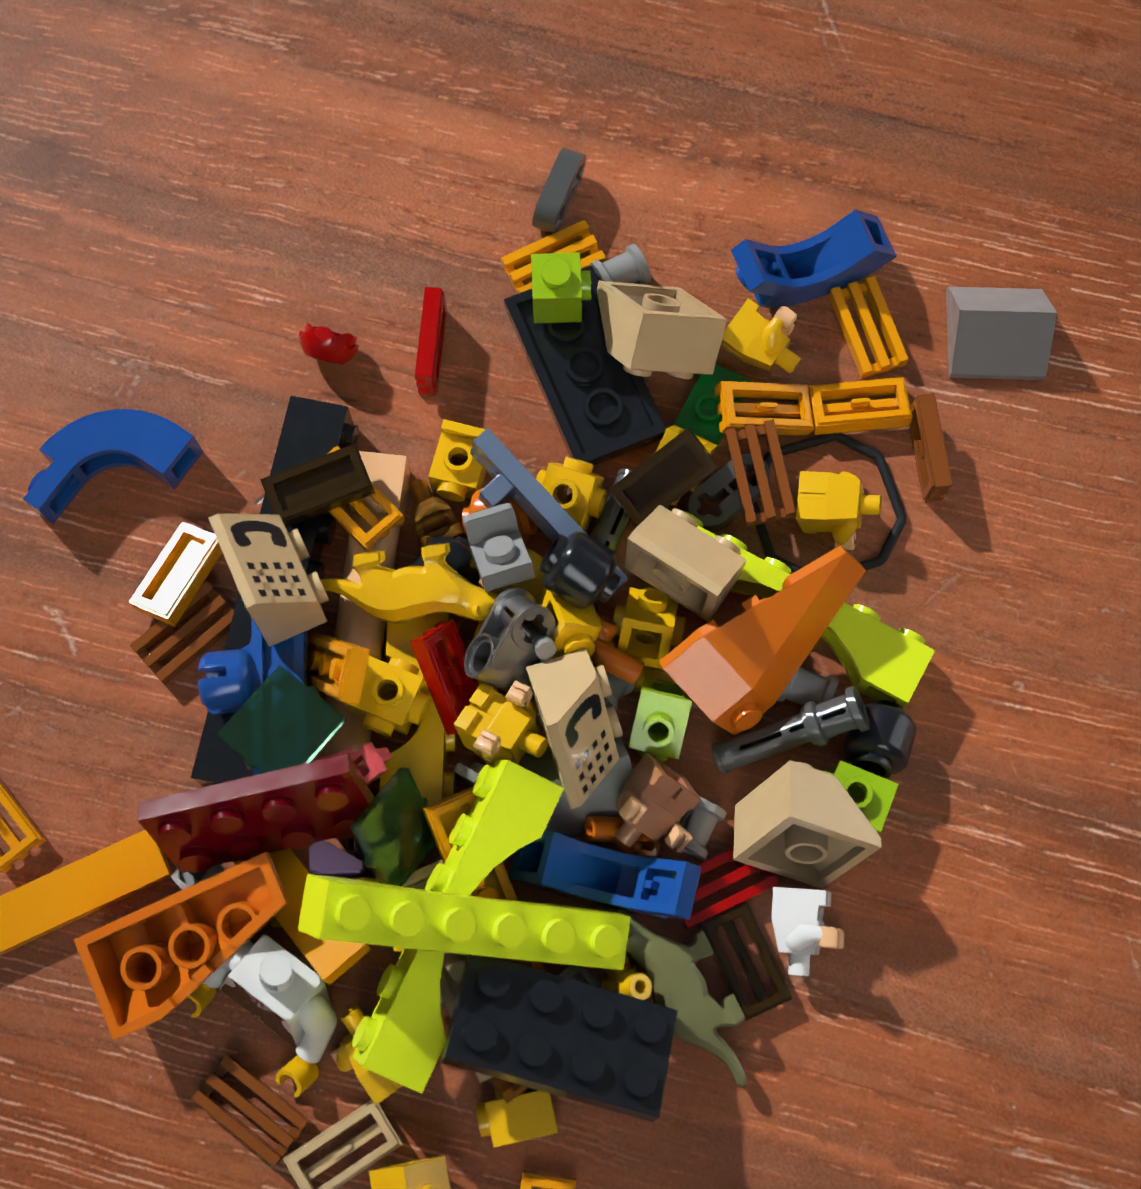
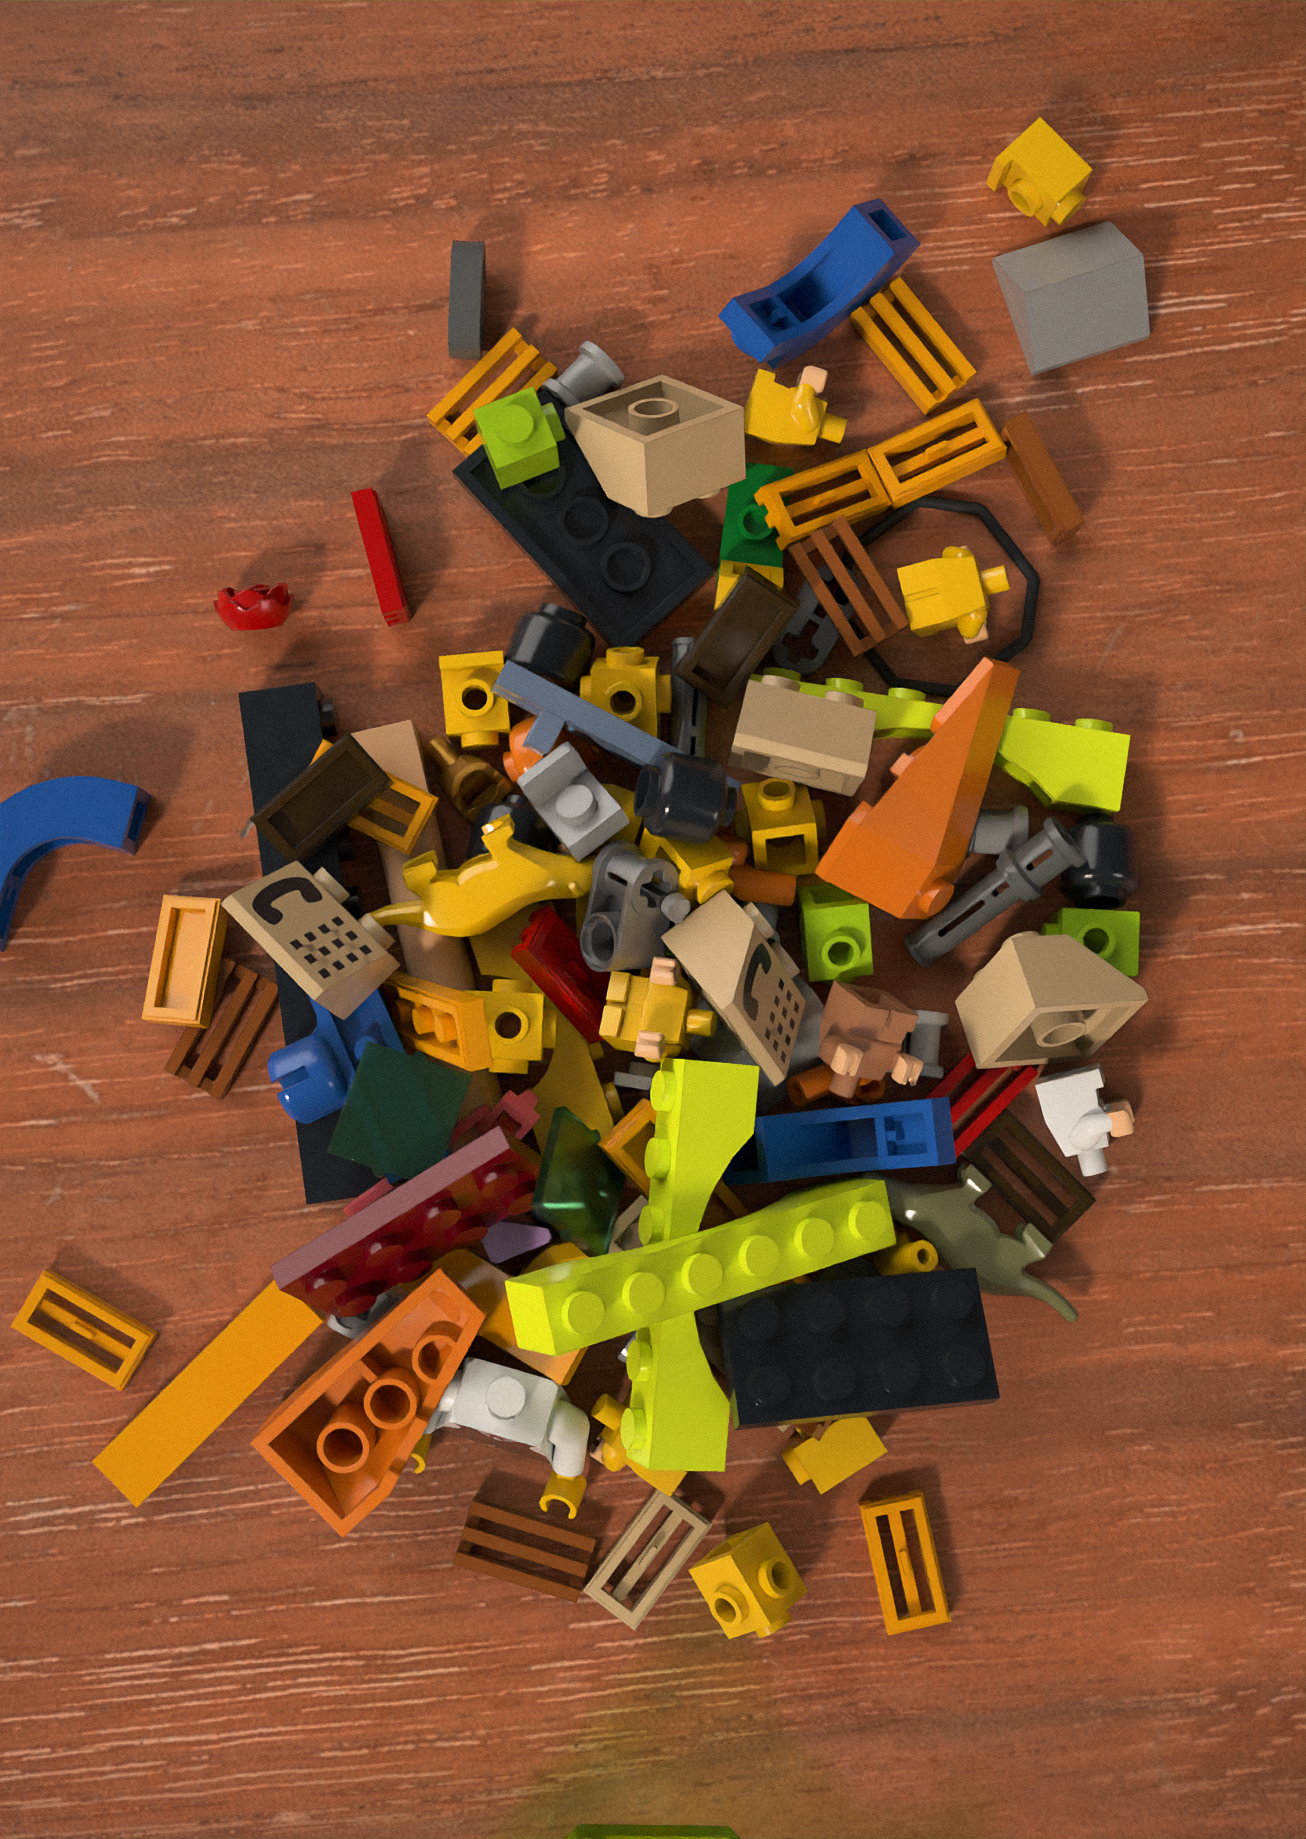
camera: 25 degrees left, 10 degrees up
(531, 439) = (552, 645): none -> black head
(1001, 239) = (1041, 175): none -> yellow brick

